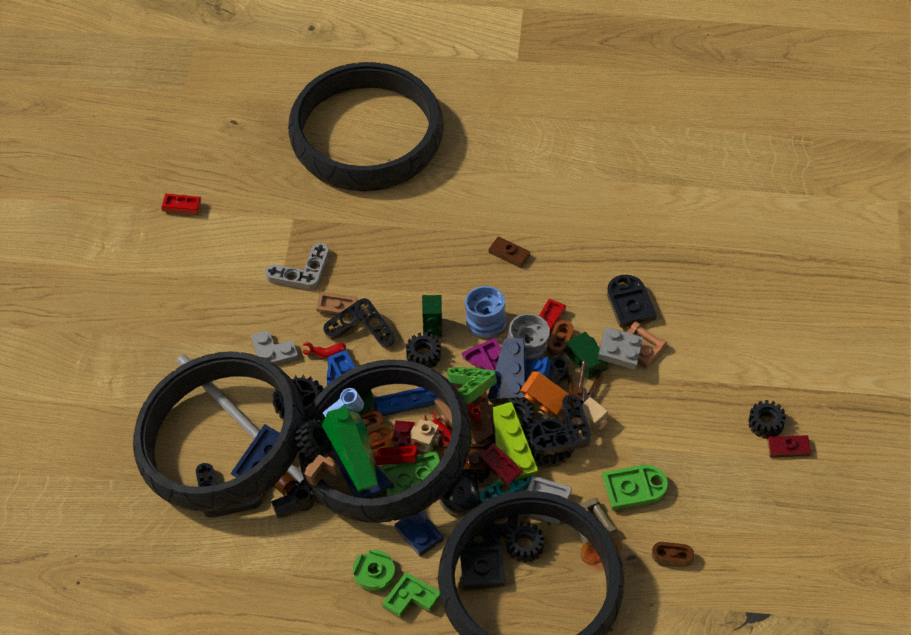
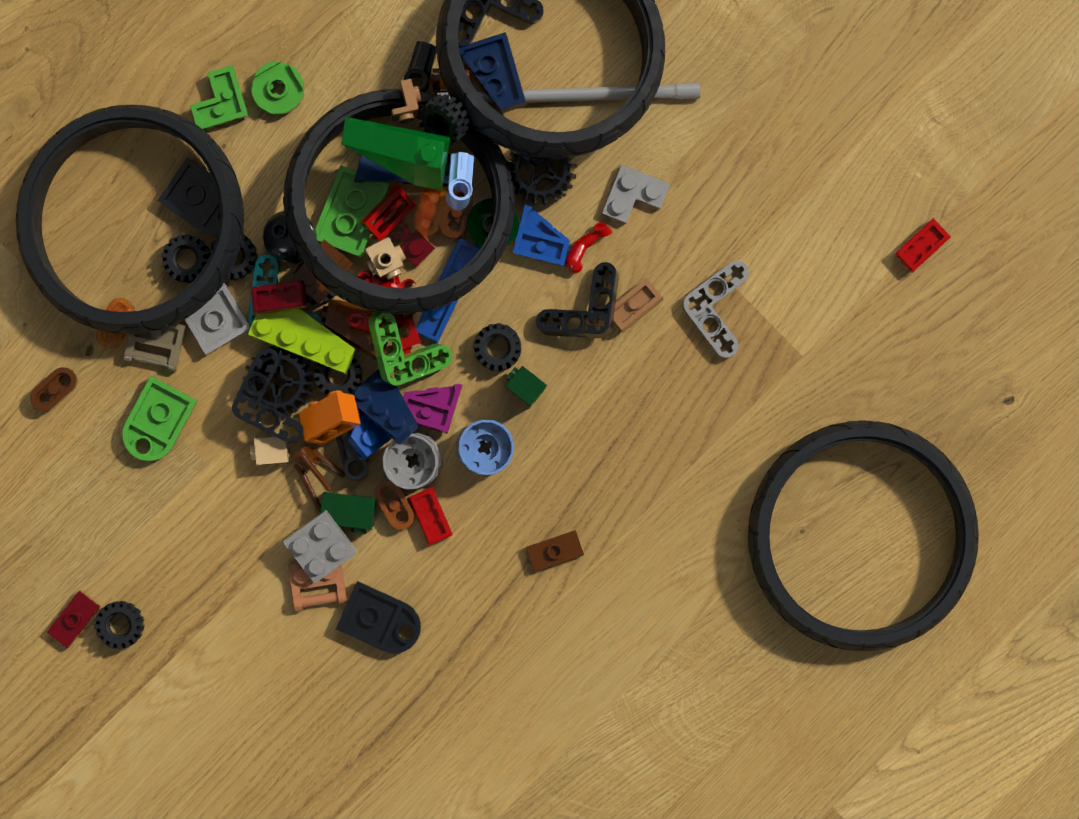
camera: 130 degrees right, 35 degrees up
(418, 533) = (275, 165): dark blue plate -> none

